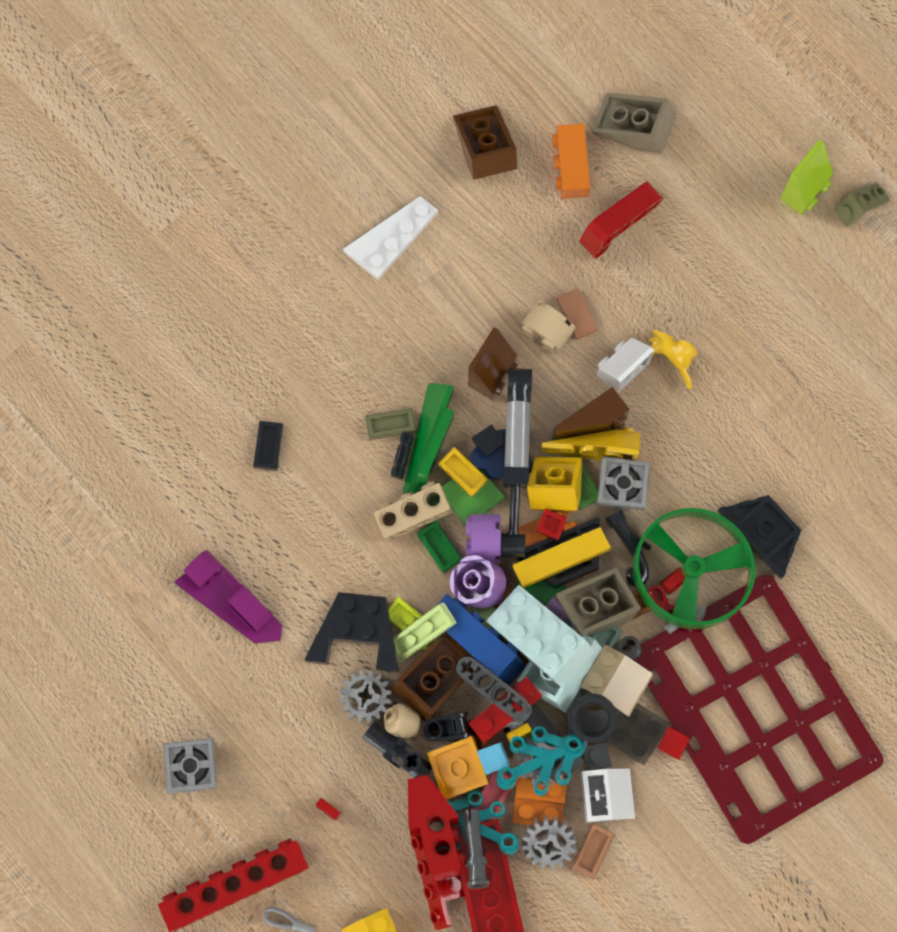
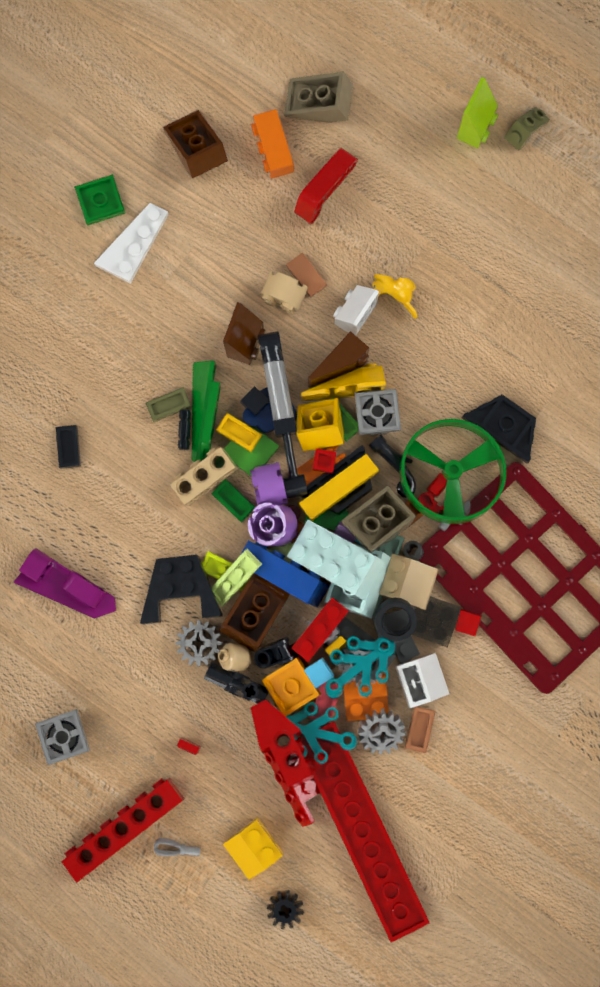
camera: 10 degrees left, 5 degrees up
(365, 180) = (99, 199): none -> green tile
(475, 861) = (323, 763): dark grey pin -> none
(495, 686) = (306, 613): dark grey beam -> none

